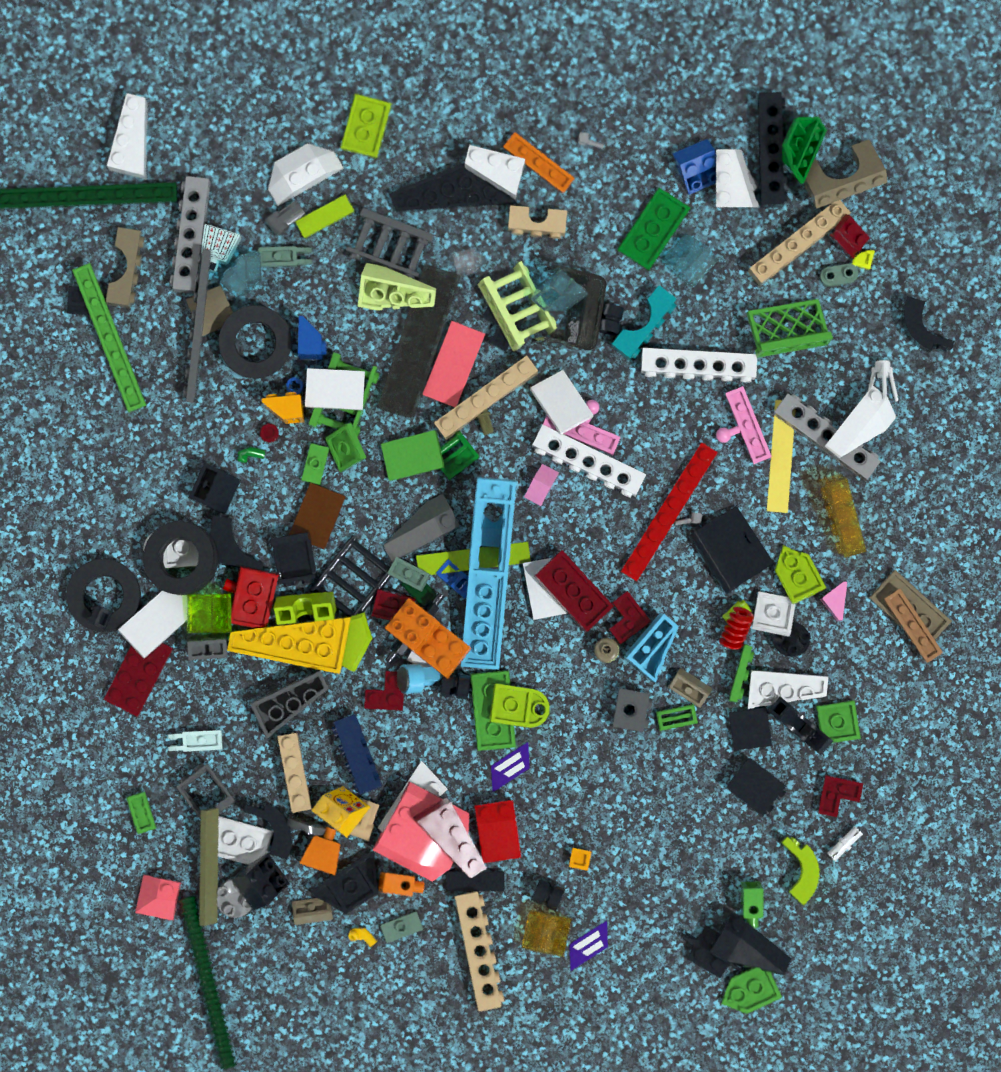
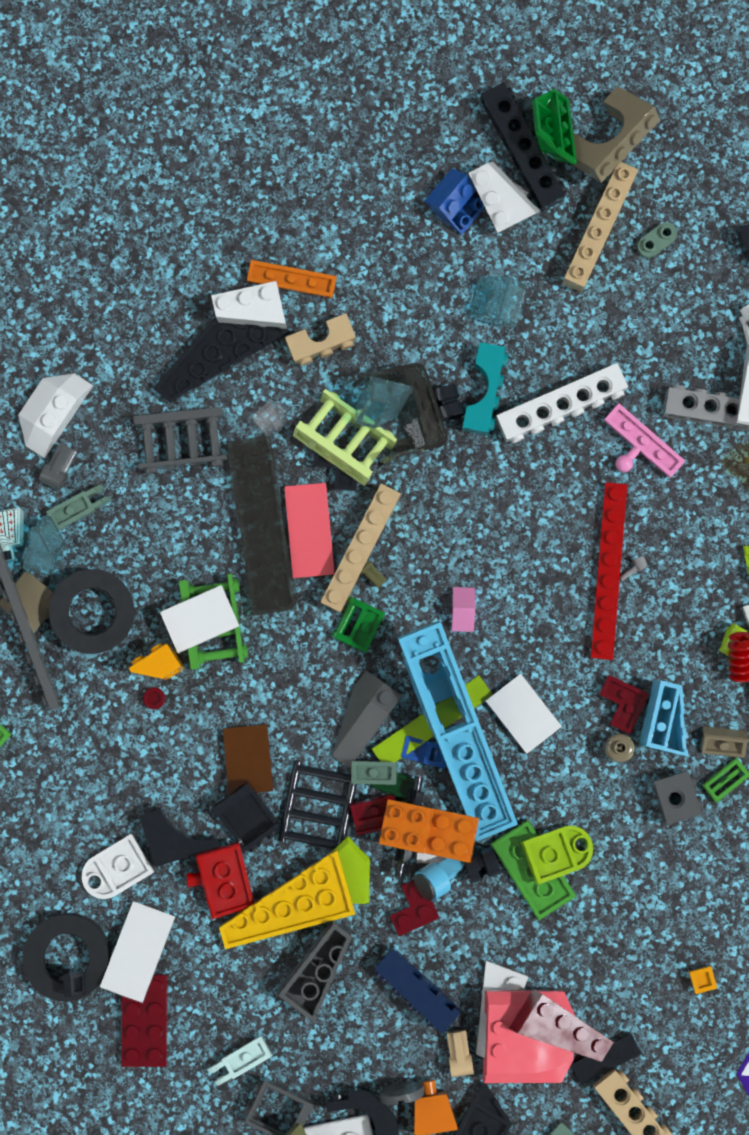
camera: 20 degrees left, 0 degrees up
(155, 550) = (97, 885): black tyre -> none
(207, 646) = (202, 956): dark grey brick -> none
(209, 613) = (186, 920): clear neon green slope -> none
(214, 488) = (126, 786): black slope -> none
(250, 452) = (145, 727): green arm -> none
(291, 607) = (268, 870): lime arch -> none
(294, 772) = (360, 1042): tan arch -> none
(298, 381) = (156, 629): blue bush -> none
(310, 342) = (148, 582): blue slope -> none
(315, 464) = (218, 706): bright green plate -> none
(324, 216) = (98, 445): lime tile -> none
(341, 810) = (429, 1057): yellow slope -> none
(345, 447) = (241, 674): bright green tile -> none
(366, 126) = (94, 330): lime tile -> none
(387, 288) = (202, 486): yellowish green wedge -> none
(392, 884) = (521, 1108): orange torso -> none
(412, 455) = (315, 646): bright green tile -> none
(498, 831) = (602, 993): red slope -> none
(510, 767) = (580, 919): dark purple sticker -> none
(546, 933) = (708, 1076): clear yellow slope -> none
(548, 894) = (689, 1034): black wheel -> none
(561, 402) = (441, 513): white tile -> none
(573, 591) = (553, 703): dark red plate -> none
(582, 451) = (556, 554): white brick -> none
(583, 139) = (325, 232): light grey hand -> none
(590, 434) = (476, 532): bright pink plate -> none
(653, 229) = (444, 288): green tile -> none
(728, 552) = (692, 578): black door -> none
(780, 465) = (697, 465): light yellow sticker -> none
(794, 343) = (643, 336): bright green fence -> none
(849, 236) = (648, 194): dark red plate -> none
(864, 259) = (674, 212): neon yellow tile -> none

